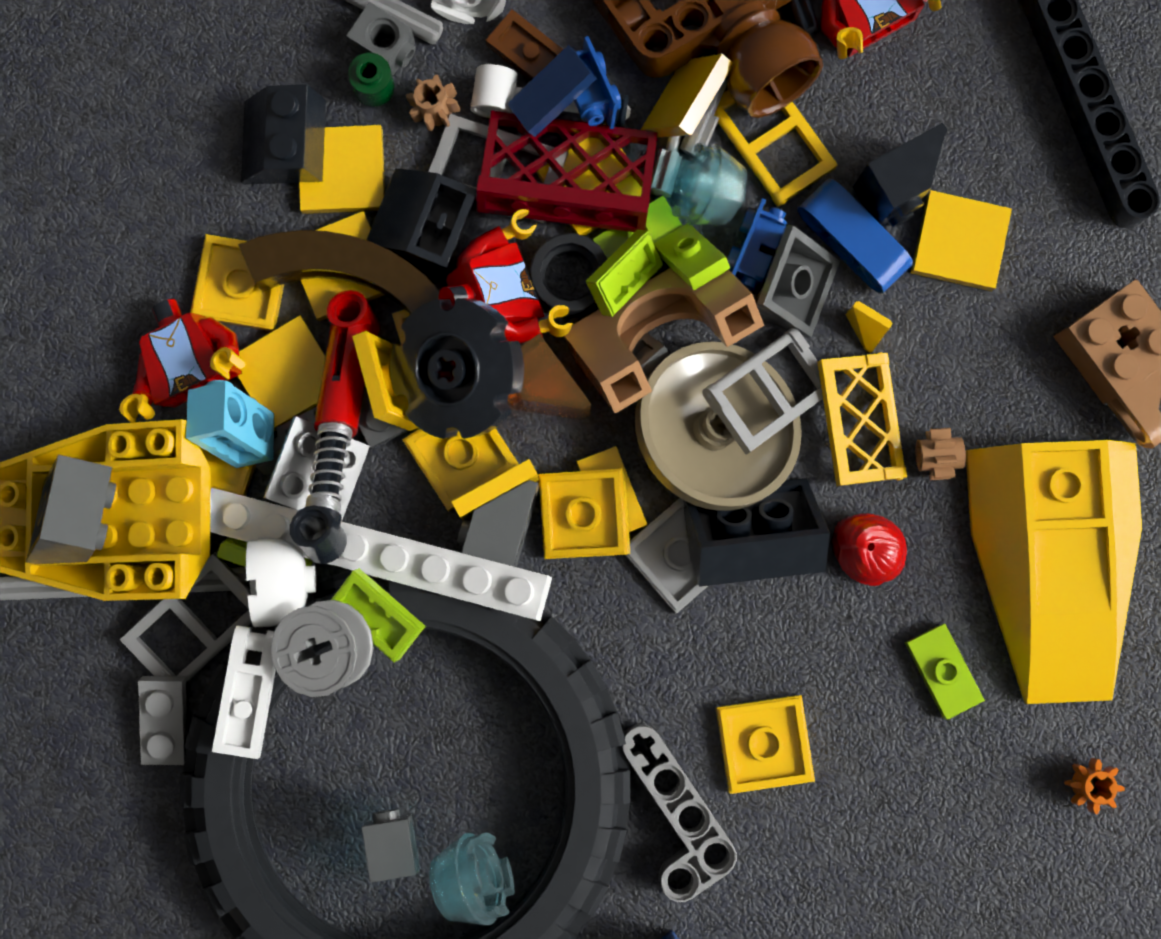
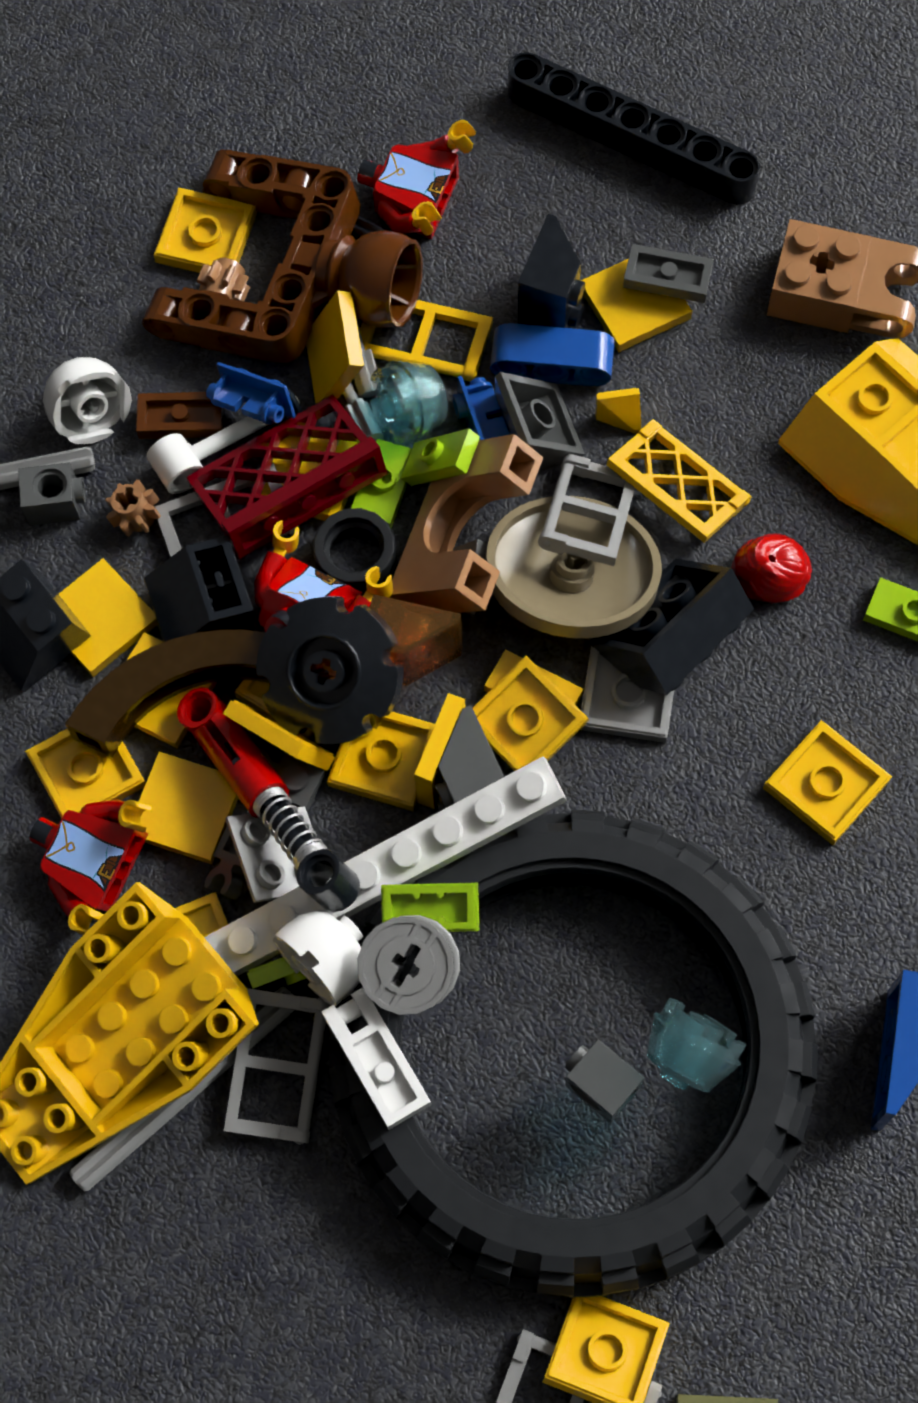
camera: 30 degrees left, 15 degrees down
(71, 512) = (97, 1044): dark grey slope -> none
(162, 719) = (318, 1168): light grey plate -> none
(230, 424) = (176, 867): medium azure brick -> none
(371, 79) = (68, 526): dark green brick -> none
(551, 91) = (224, 421): dark blue tile -> none
(624, 273) = (398, 510): lime plate -> none
(672, 803) = (797, 887): light grey beam -> none
(940, 454) = (761, 456): medium nougat gear -> none
(1002, 243) = (668, 273): none -> dark grey plate

